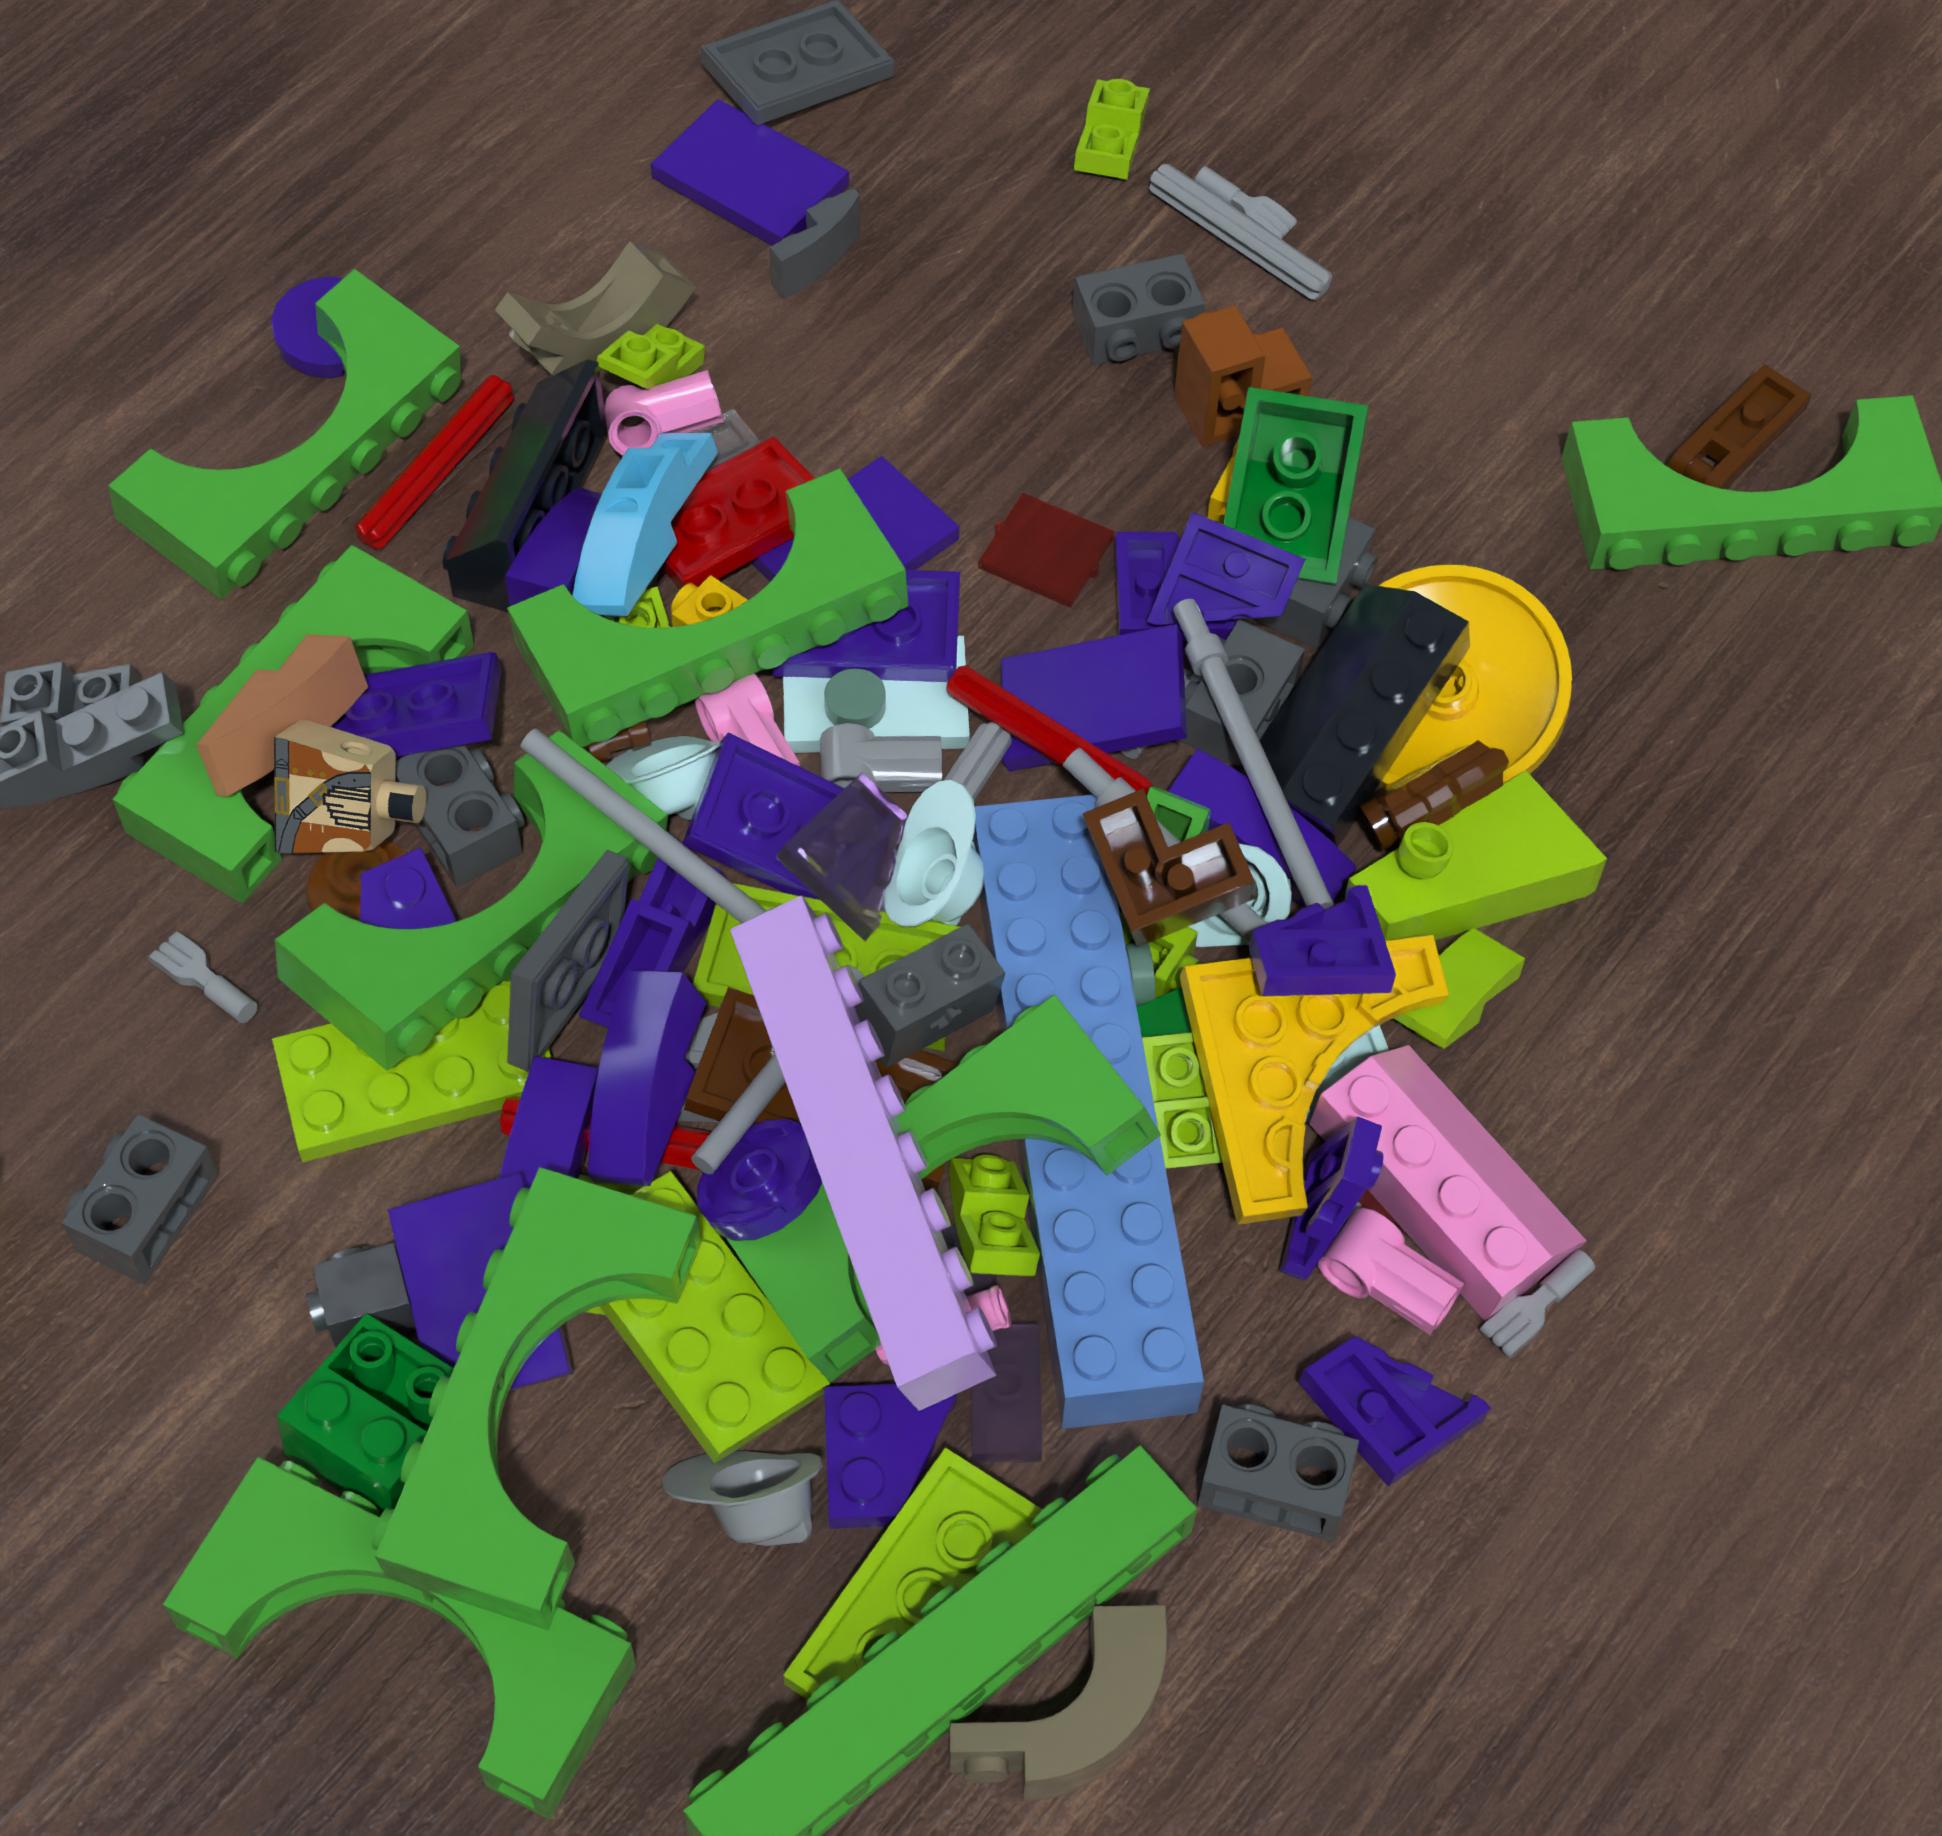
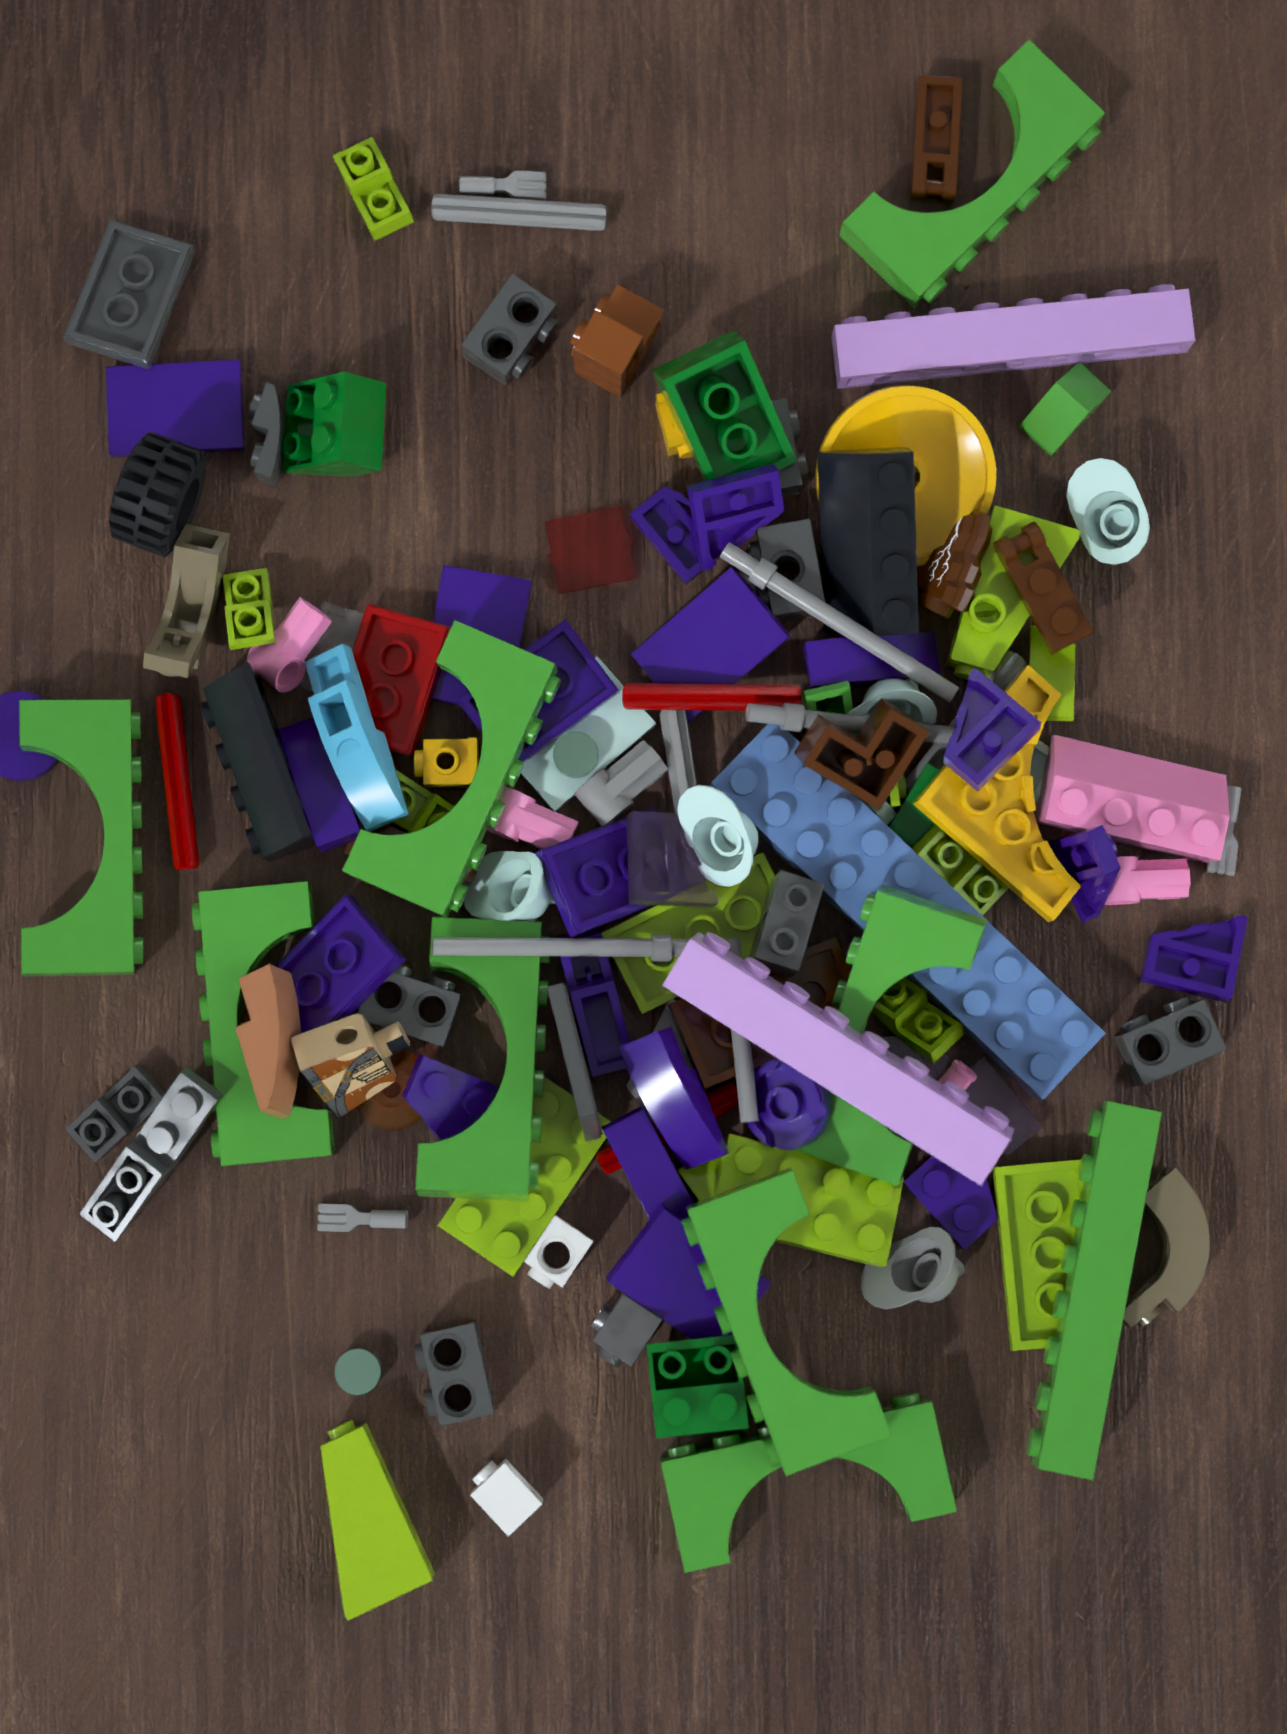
camera: 45 degrees left, 25 degrees up
(43, 1123) = (358, 1371): none -> sand green tile
(59, 1370) = (505, 1495): none -> white brick
(377, 1134) = (563, 1232): none -> white brick
(659, 192) = (157, 493): none -> black tyre
(888, 273) = (334, 426): none -> green slope
(1513, 880) = (1043, 589): none -> reddish brown plate
(1657, 867) = (1108, 511): none -> light aqua piece
(1686, 753) = (1064, 408): none -> bright green slope
(1696, 655) = (1012, 337): none -> lavender brick

